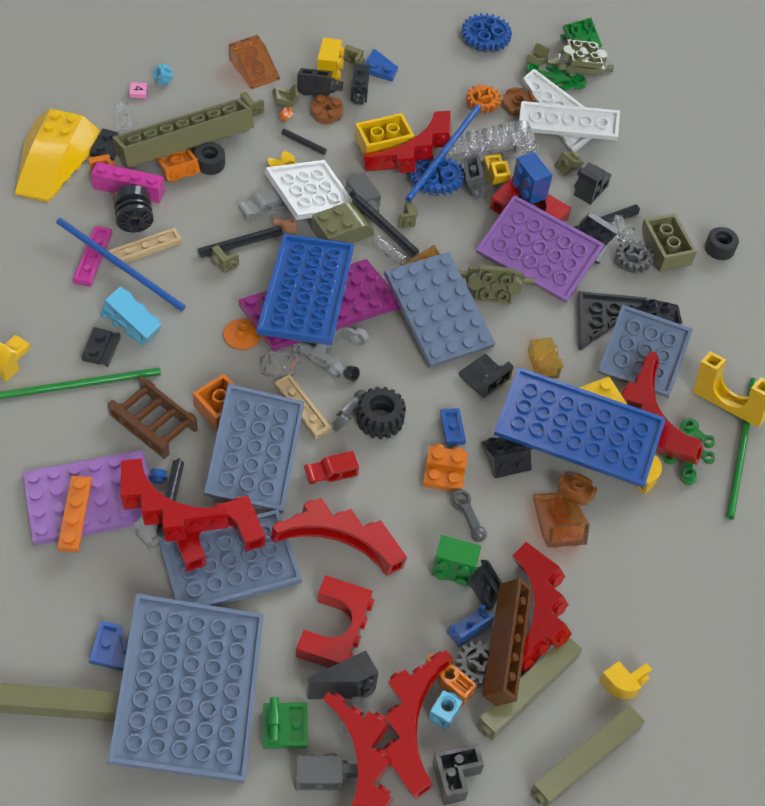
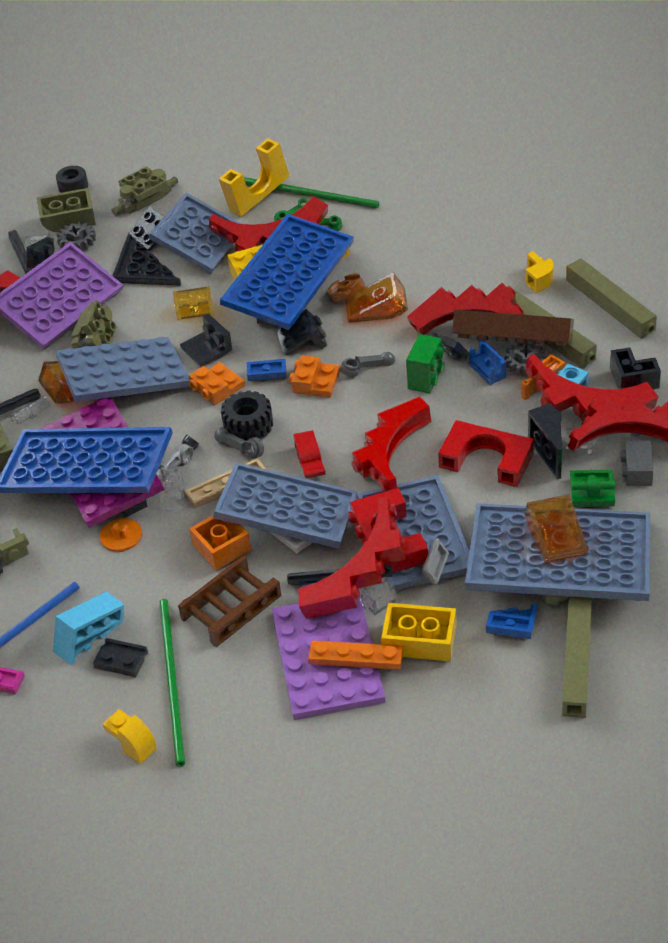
camera: 75 degrees left, 10 degrees down
(97, 564) = (421, 630): none -> yellow brick
(177, 574) = (435, 562): none -> light grey tile
(202, 677) = (555, 528): none -> clear orange slope
(434, 387) = (215, 383): none -> orange plate
(715, 301) = (142, 189): none -> olive piece

